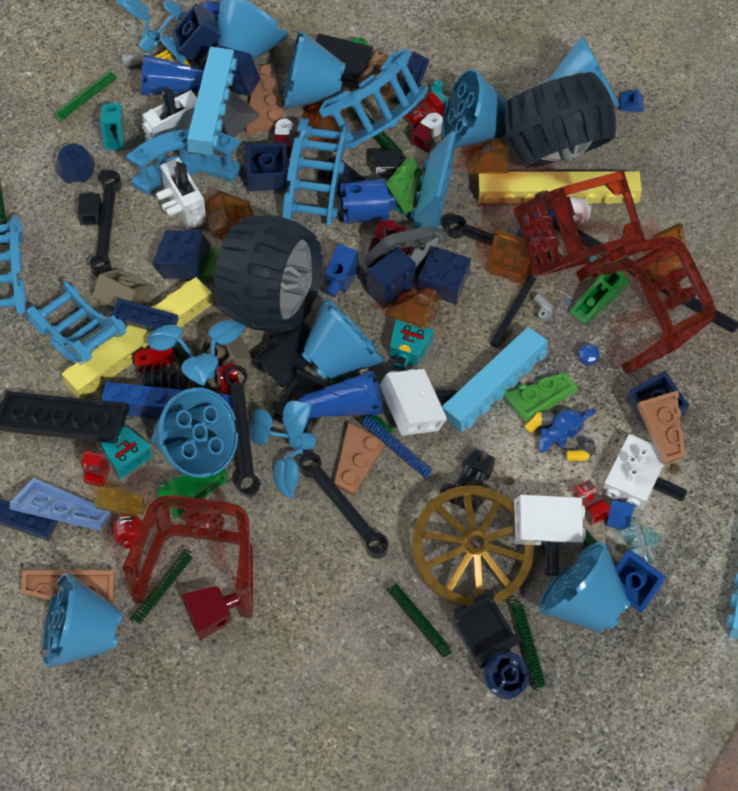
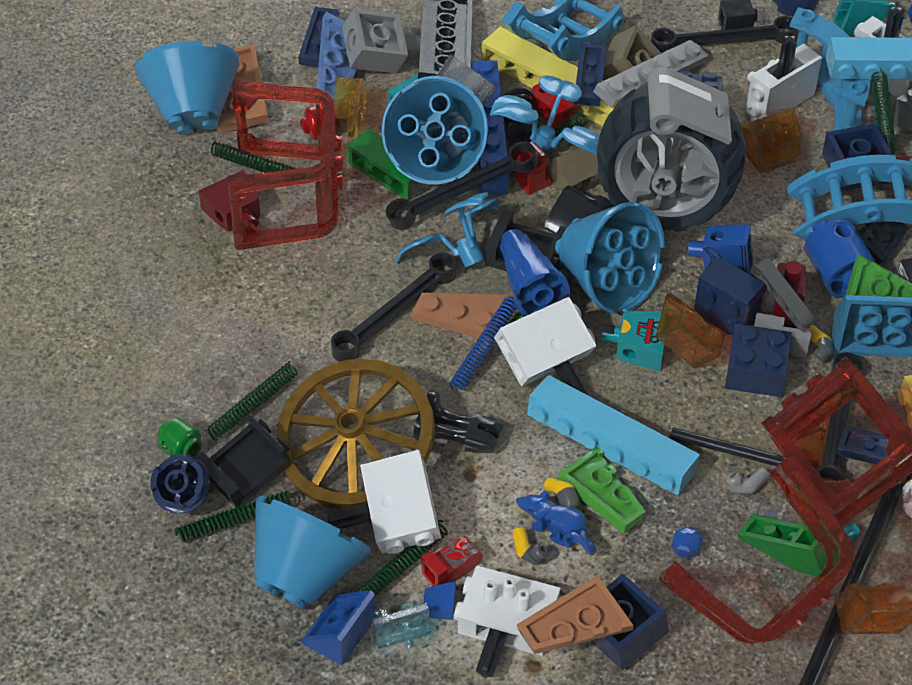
camera: 80 degrees right, 10 degrees down
(55, 469) = (378, 41): none -> light grey brick
(95, 468) = (389, 72): red leg -> none
(143, 405) = (460, 72): none -> clear brick
(149, 277) = (682, 57): none -> light grey plate
(244, 129) = (892, 145): none -> dark green piece
(273, 237) = (687, 102): none -> light grey door
(452, 676) = (179, 438): none -> green head

